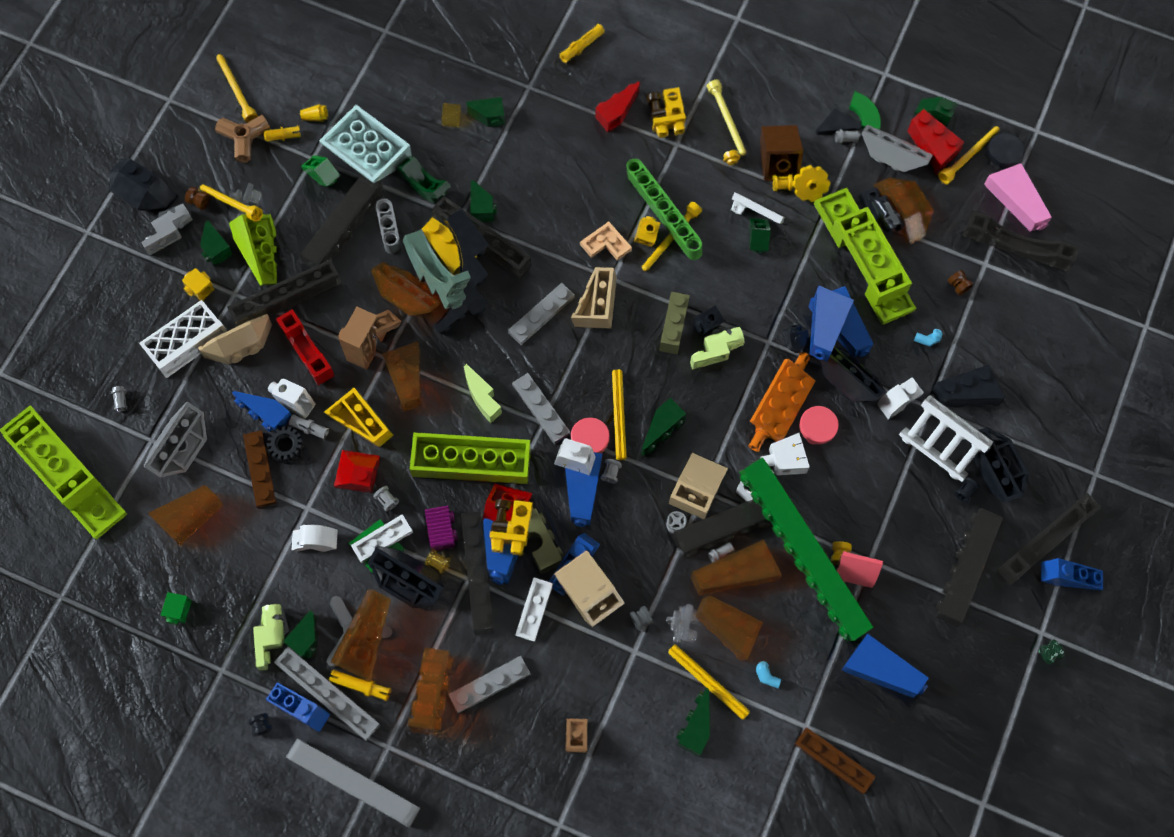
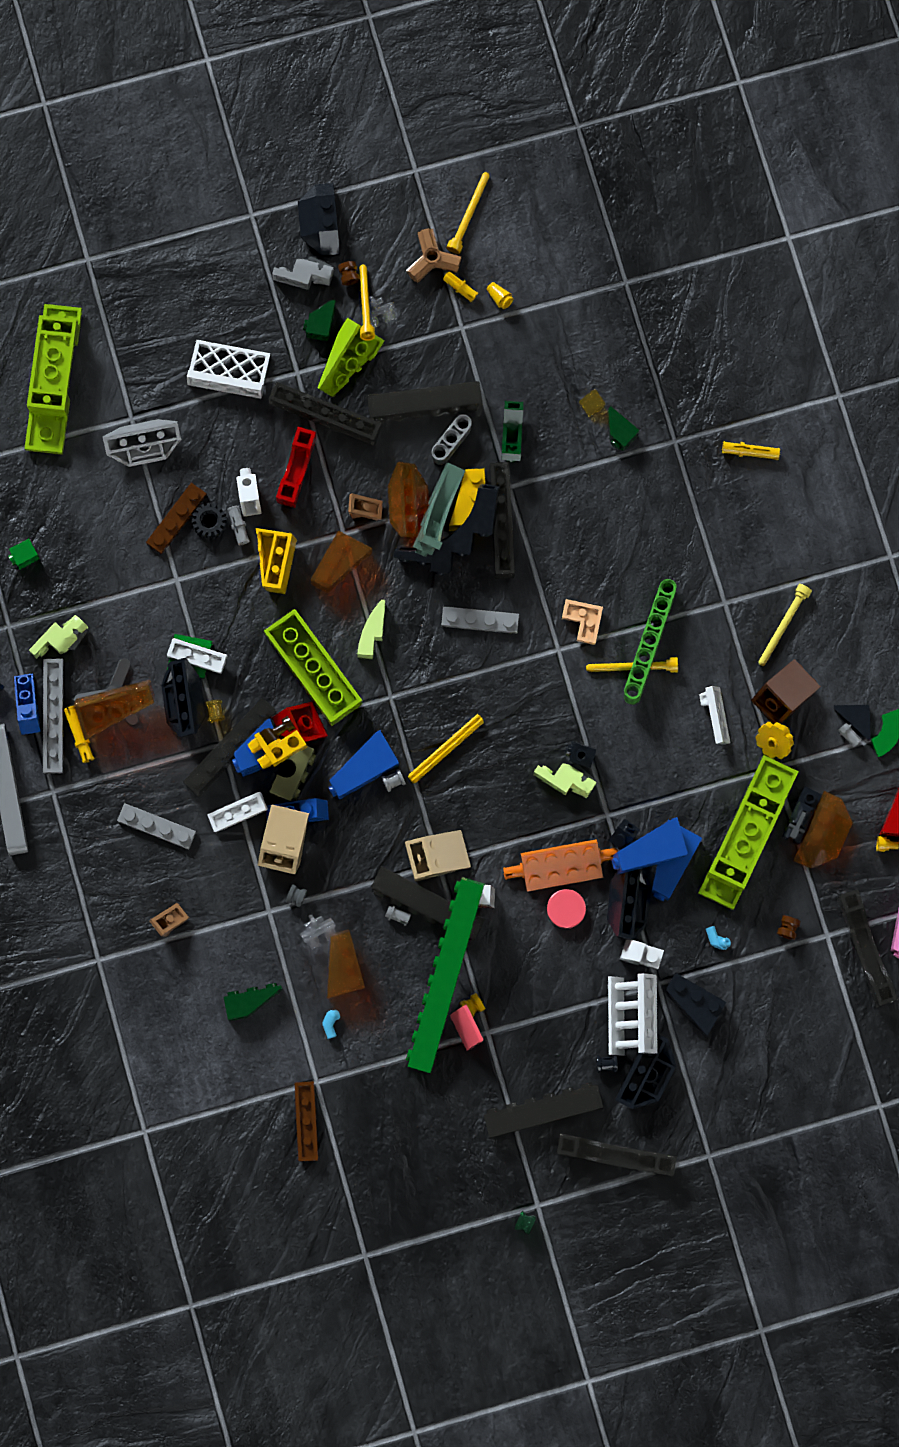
camera: 50 degrees right, 10 degrees up
(119, 398) = (142, 366): light grey pin -> none
(186, 514) = (97, 498): clear orange wedge -> none
(197, 284) = (279, 339): yellow brick -> none
(238, 342) = (259, 414): tan wedge -> none
(265, 409) = (224, 487): blue slope -> none
(304, 637) = (79, 664): dark green slope -> none
(314, 537) = (156, 607): white brick -> none
(321, 170) = (453, 345): green slope -> none
(357, 471) = (235, 591): red slope -> none
(358, 338) = (333, 503): medium nougat wedge -> none
(366, 145) = (502, 362): light aqua slope -> none
(386, 498) = (231, 631): light grey bush -> none
(430, 691) = (115, 788): clear orange wedge -> none
(440, 528) = (241, 691): magenta brick -> none
(482, 204) = (532, 495): dark green slope -> none
(541, 408) = (400, 685): light grey plate -> none
(575, 456) = (376, 746): white torso -> none
(592, 433) = (408, 741): coral tile -> none
(597, 303) = (525, 655): tan wedge -> none
(614, 110) = (711, 529): red slope -> none
(647, 231) = (613, 648): yellow brick -> none
(665, 420) = (466, 788): dark green slope -> none
(669, 117) = (744, 578): yellow hips -> none
(674, 323) = (557, 728): olive arch -> none
(675, 518) = (393, 858): light grey wheel -> none
(708, 681) = (290, 983): yellow axle -> none
(731, 157) = (747, 657): yellow plate -> none
(739, 569) = (394, 938): clear orange wedge -> none
(759, 235) = (694, 734): dark green slope -> none
(782, 183) = (759, 716): yellow bush -> none
(788, 456) = (517, 904): white torso -> none
(883, 667) = (407, 1103): blue slope -> none
(894, 151) = (868, 782): light grey wedge -> none
(1071, 574) = (603, 1195): blue slope -> none

